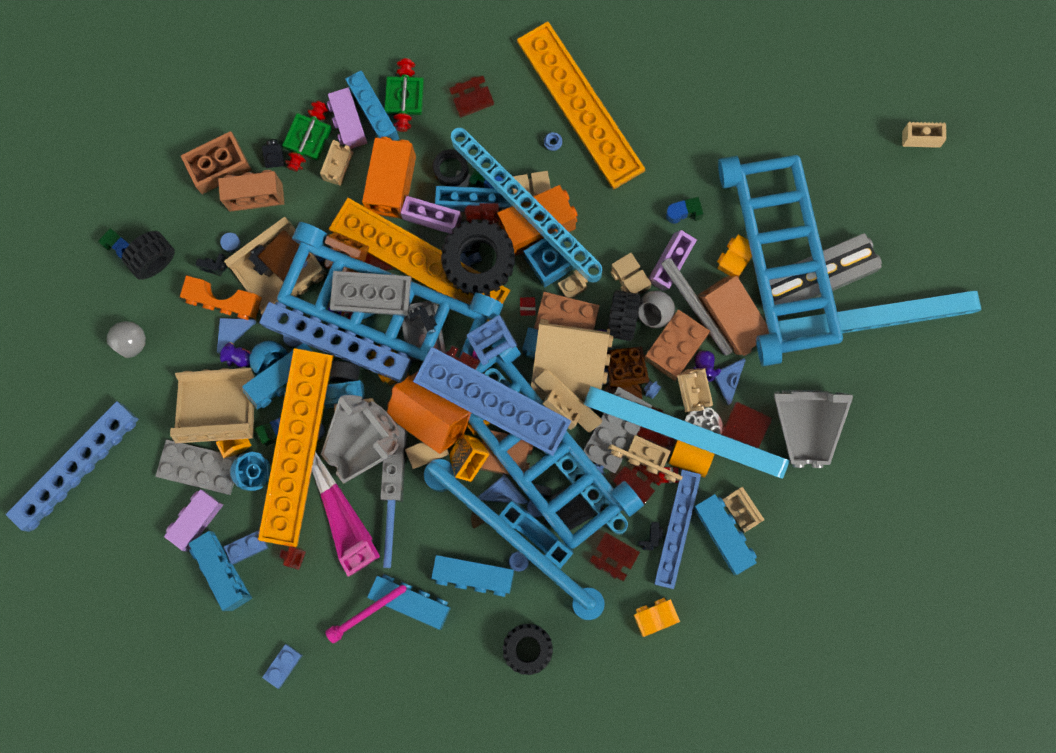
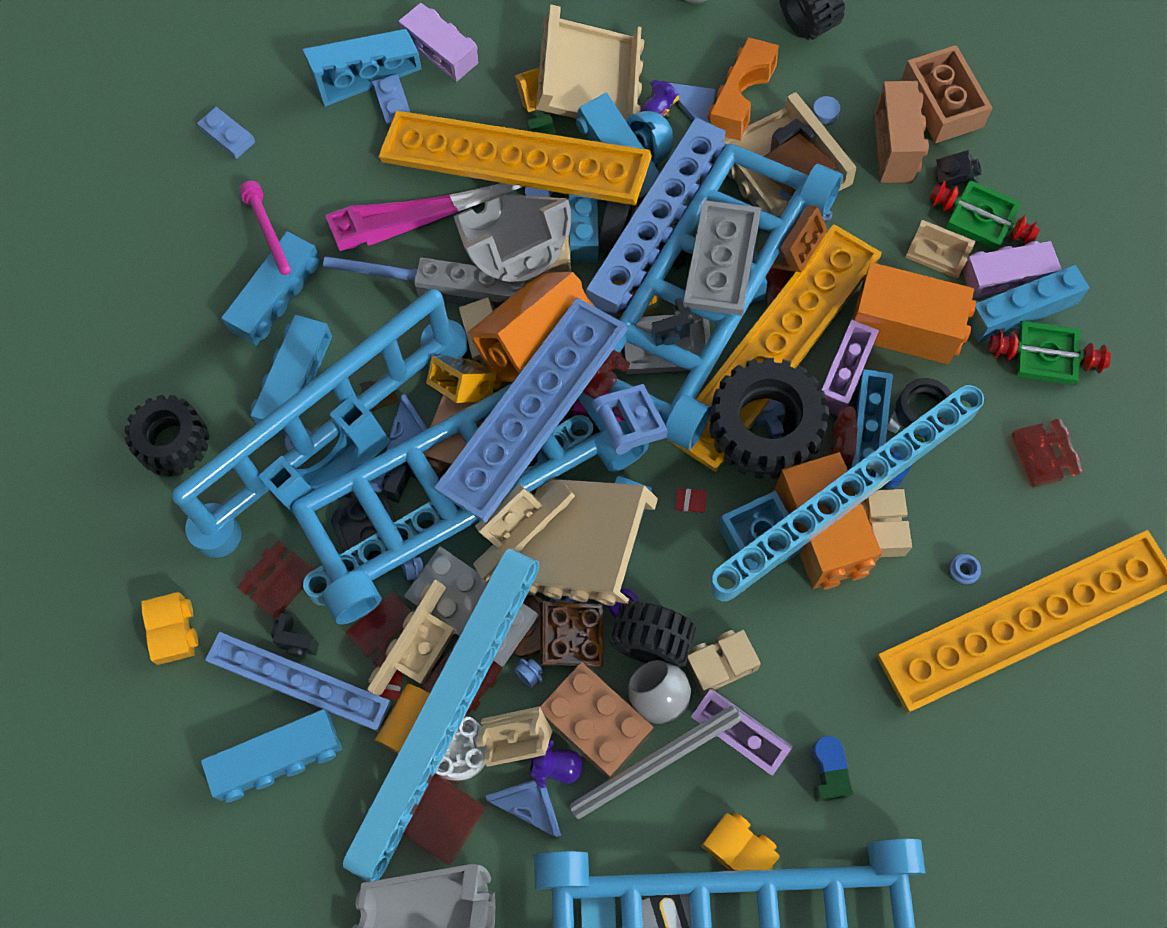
camera: 90 degrees right, 10 degrees down
(196, 467) = (509, 51): light grey plate -> none
(210, 266) = (792, 81): black bracket -> none
(250, 471) = (489, 102): dark azure cylinder -> none
(292, 557) = (364, 151): clear red tile -> none
(567, 312) = (663, 552): nougat brick -> none
(573, 285) = (709, 563): tan bracket -> none
(734, 313) = (637, 824): nougat slope -> none
(743, 509) = (307, 794): tan hinge -> none

